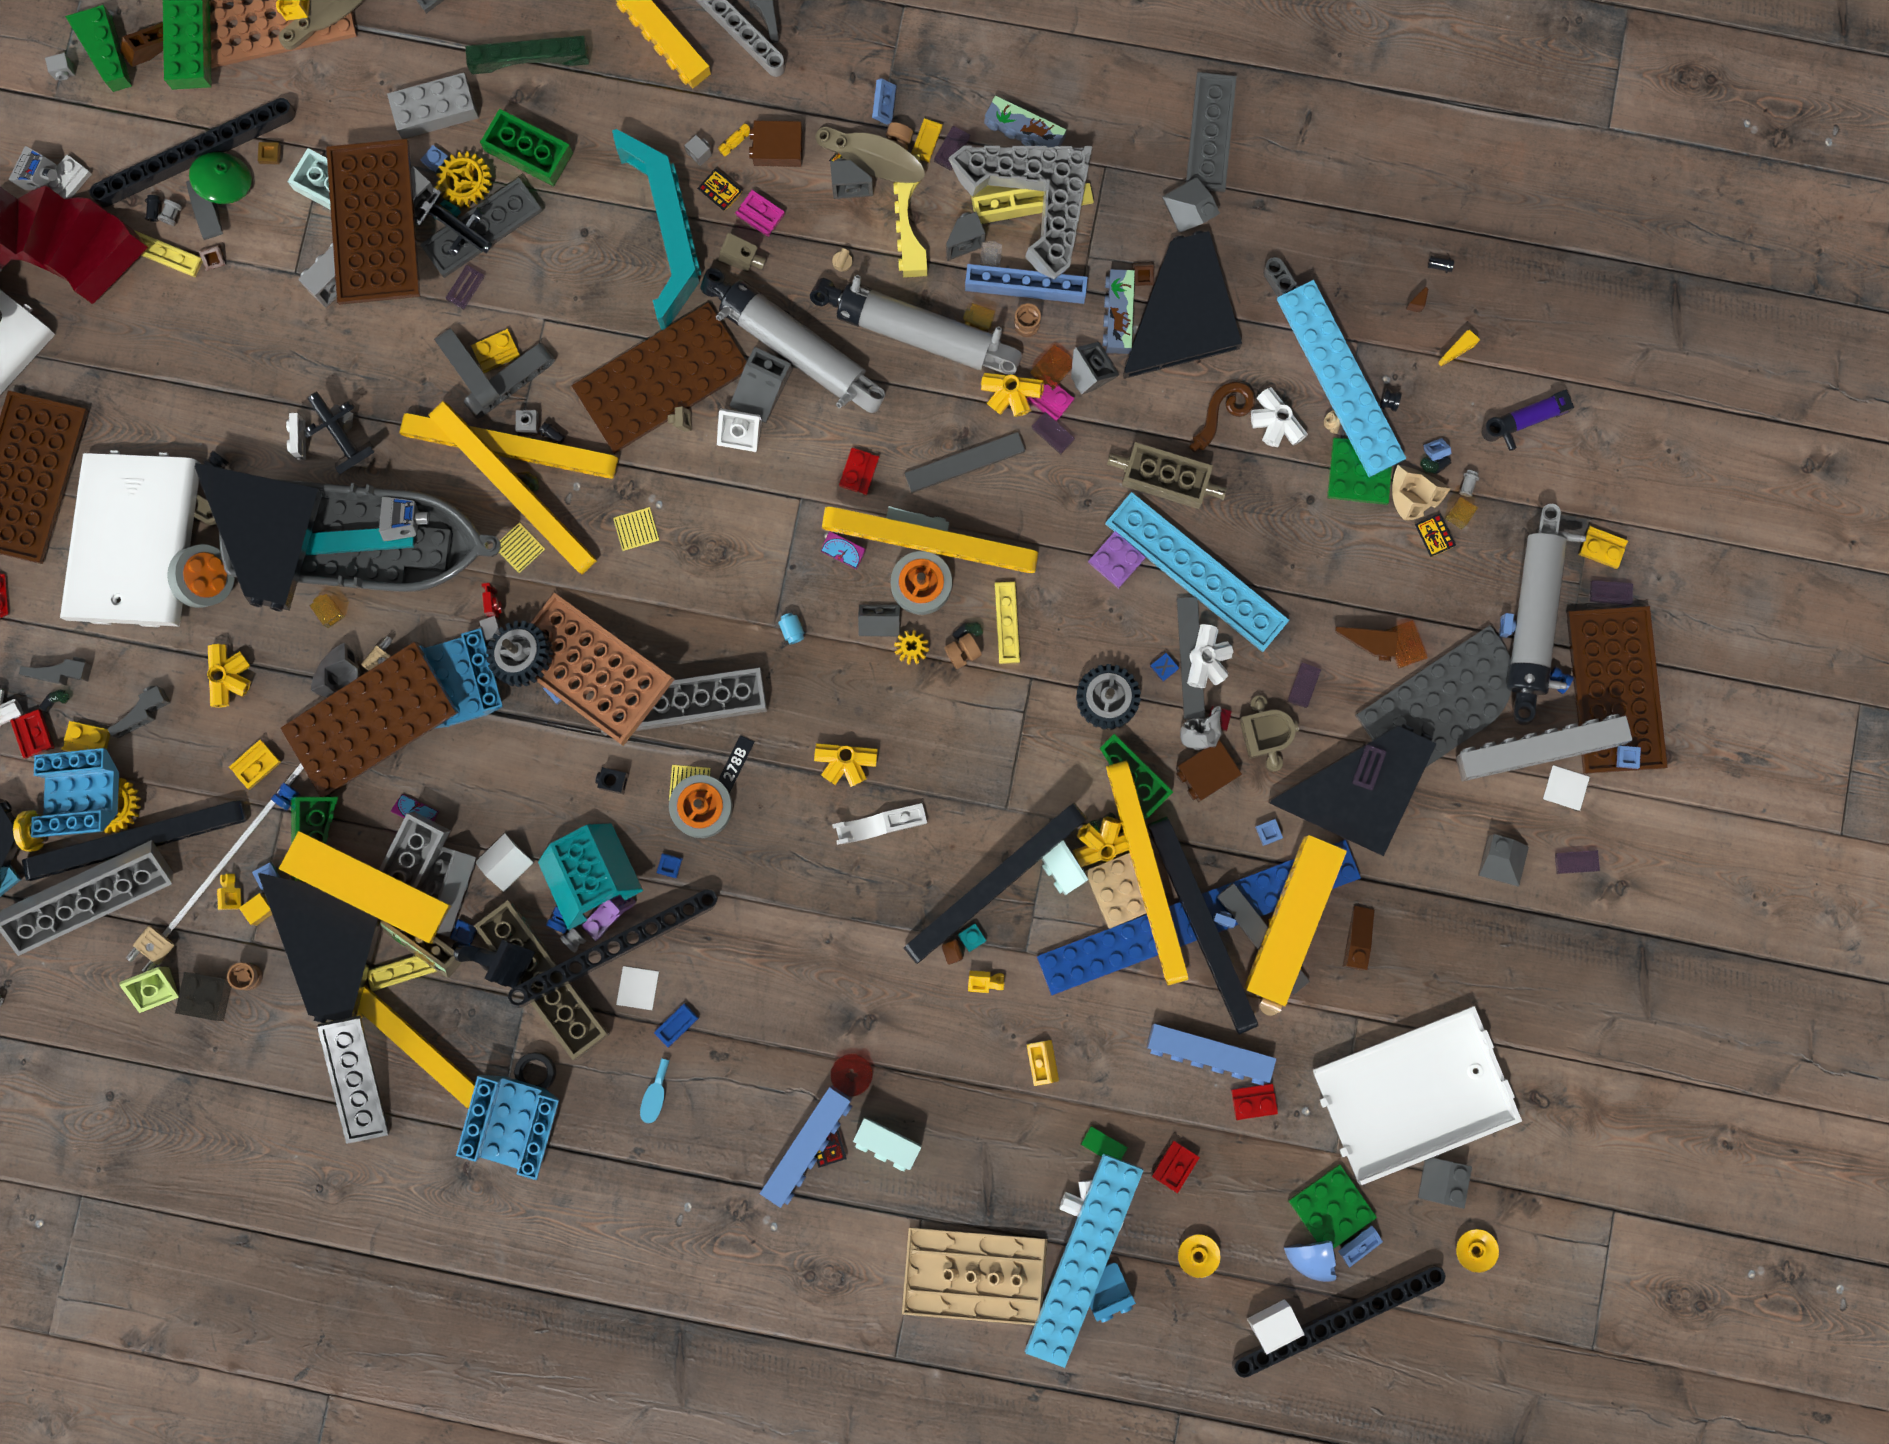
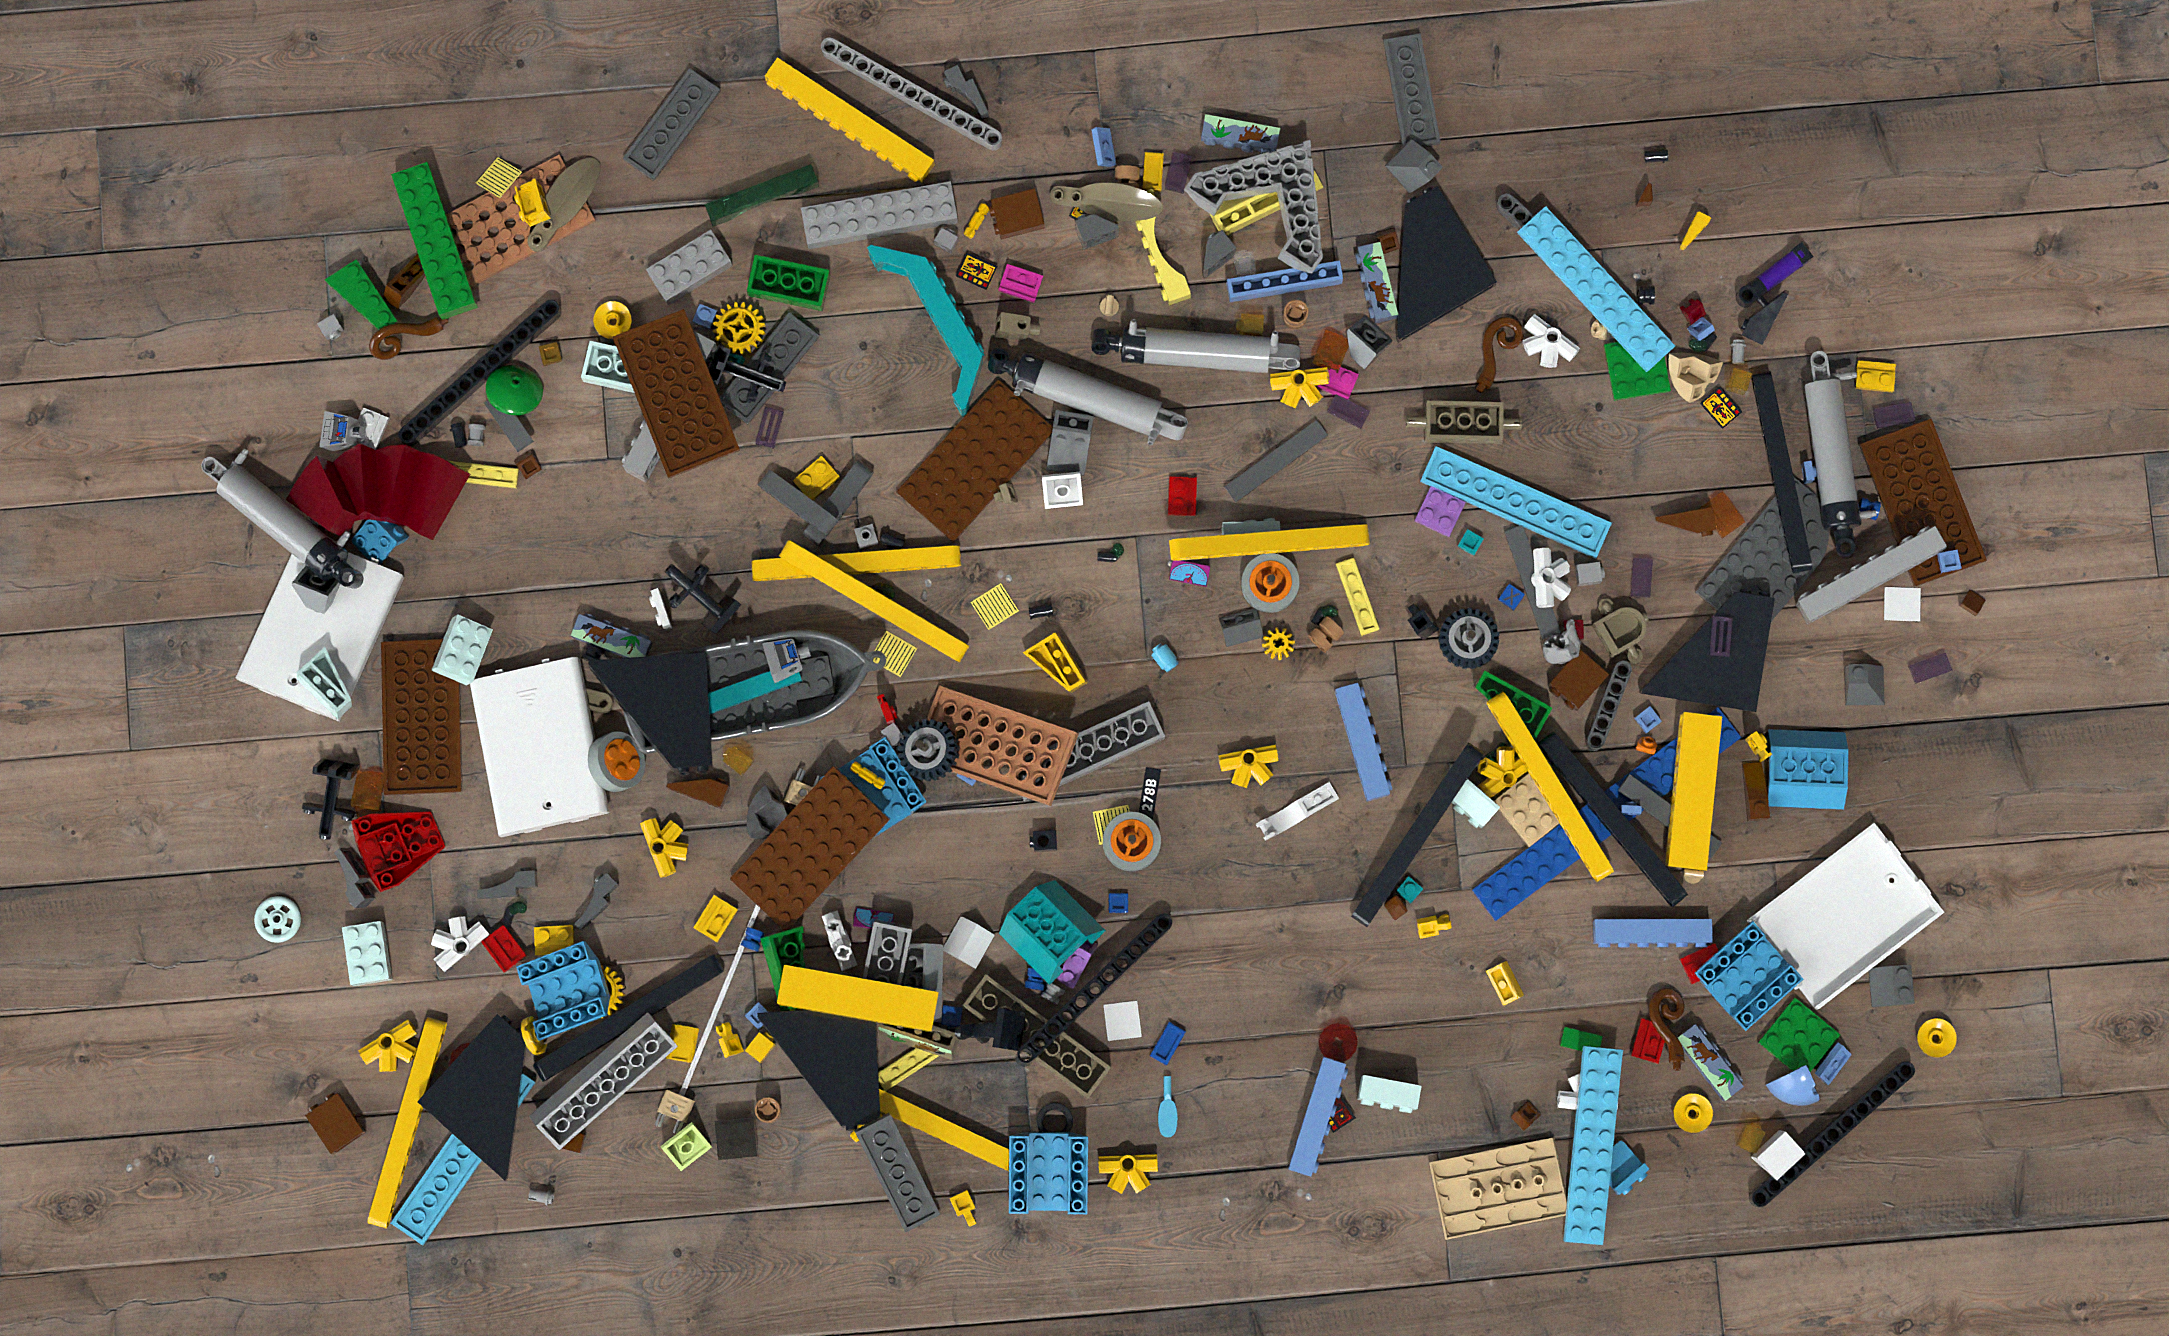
camera: 15 degrees left, 0 degrees up
(39, 286) = (378, 539): none -> dark azure bracket
(42, 953) = (576, 1144): none -> reddish brown slope
(83, 420) = (462, 649): none -> light aqua brick
(154, 94) = (420, 329): none -> reddish brown plant
(184, 882) = (686, 1040): none -> yellow piece
(237, 451) = (610, 638): none -> brick
(286, 632) = (707, 791): none -> reddish brown slope
(339, 128) = (609, 311): none -> yellow dish
(371, 822) = (839, 940): none -> white piece
(414, 1132) = (963, 1205): none -> yellow plate
(452, 662) = (867, 775): none -> yellow axle
(588, 1149) = (1122, 1176): none -> yellow piece
(638, 106) = (879, 215): none -> light grey brick
(680, 546) = (1041, 611): none -> black pin
(680, 601) = (1057, 661): none -> yellow wedge
(769, 511) = (1113, 555): none -> arm
(967, 772) = (1362, 742): none -> medium blue brick
(1024, 1207) = (1525, 1115): none -> reddish brown slope
(1064, 666) = (1422, 622): none -> black brick
(1138, 599) = (1470, 542): none -> teal plate
(1199, 1180) = (1675, 1048): none -> reddish brown plant
(1231, 1207) = (1709, 1062): none -> brick
(1241, 801) = (1614, 698): none -> dark grey beam
(1251, 666) = (1589, 574): none -> light grey brick
(1252, 1299) = (1751, 1137): none -> clear yellow brick
(1260, 858) = (1646, 745): none -> orange plate
(1297, 1129) = (1748, 976): none -> dark azure slope
(1376, 889) = (1758, 745): none -> yellow plate
(1420, 930) = (1807, 769): none -> dark azure slope
(1435, 429) = (1694, 311): none -> dark red tile
(1479, 618) = (1781, 472): none -> black beam
(1503, 457) = (1762, 320): none -> black slope
(1639, 807) = (1972, 603): none -> reddish brown slope

